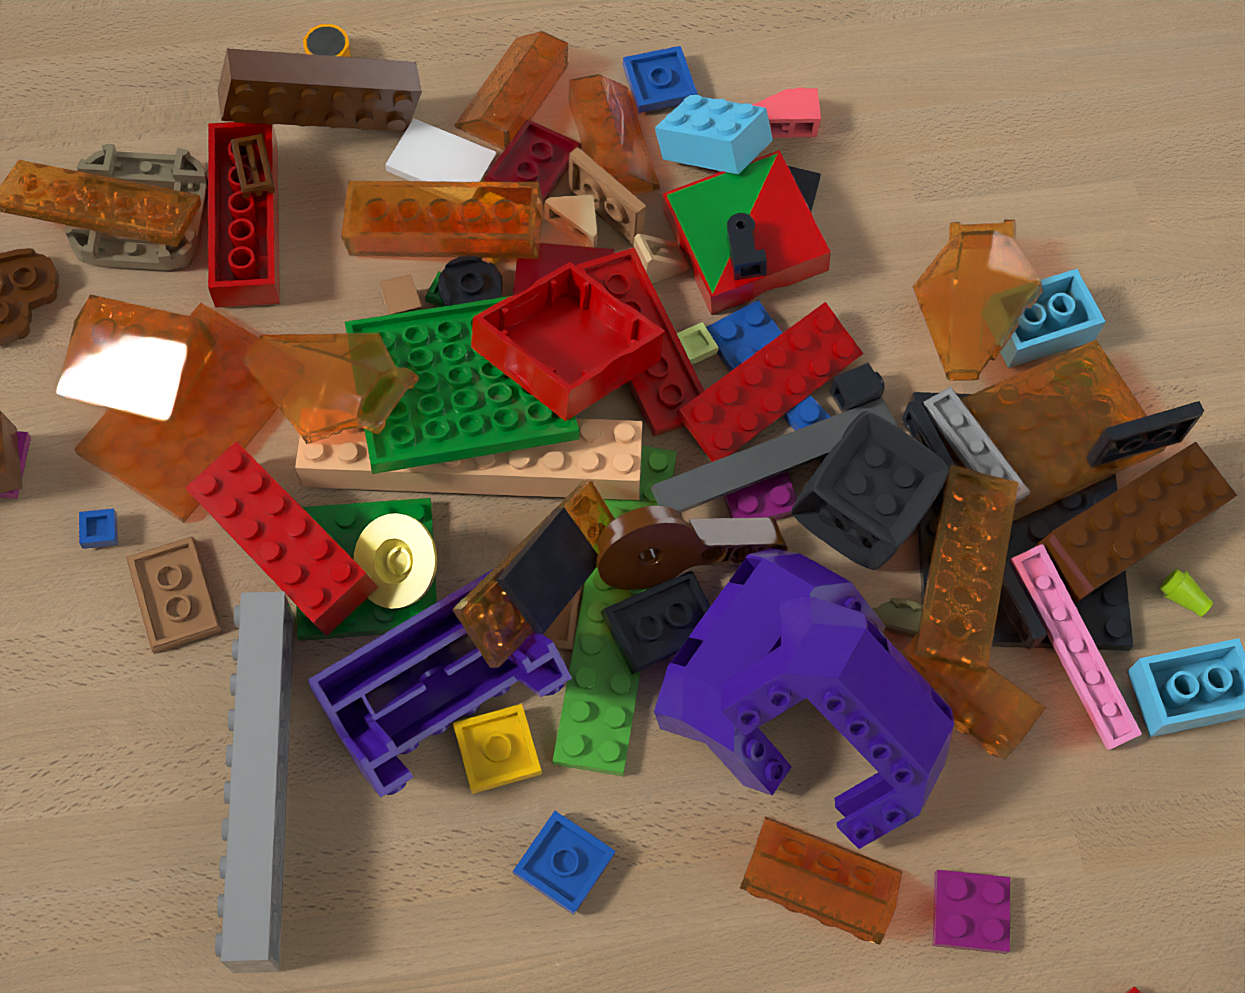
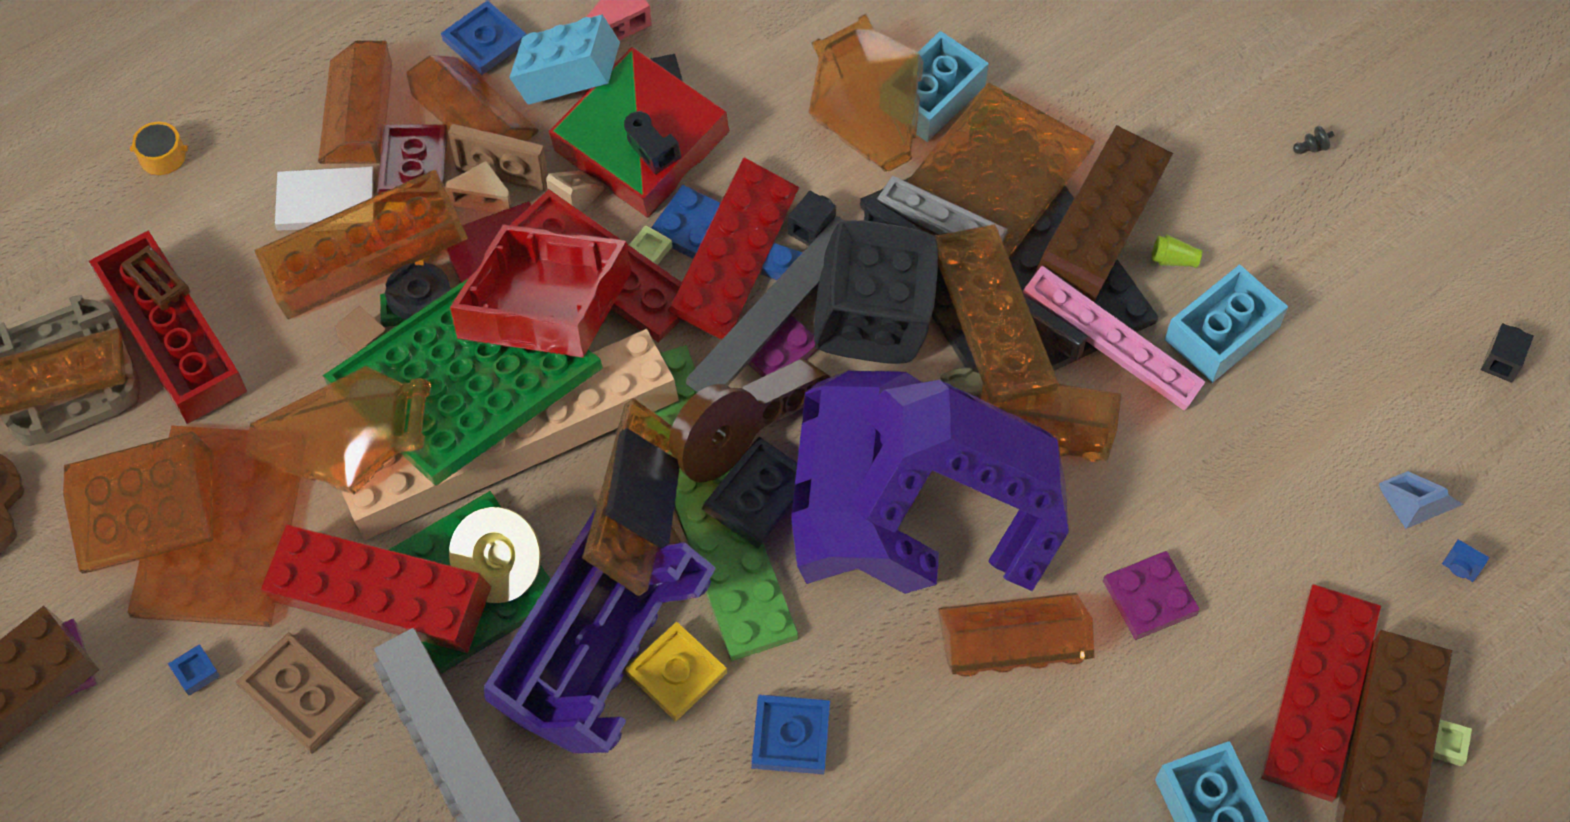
camera: 25 degrees left, 5 degrees down
(317, 90) = (179, 183): reddish brown brick -> none
(1144, 434) = (1074, 136): black tile -> none

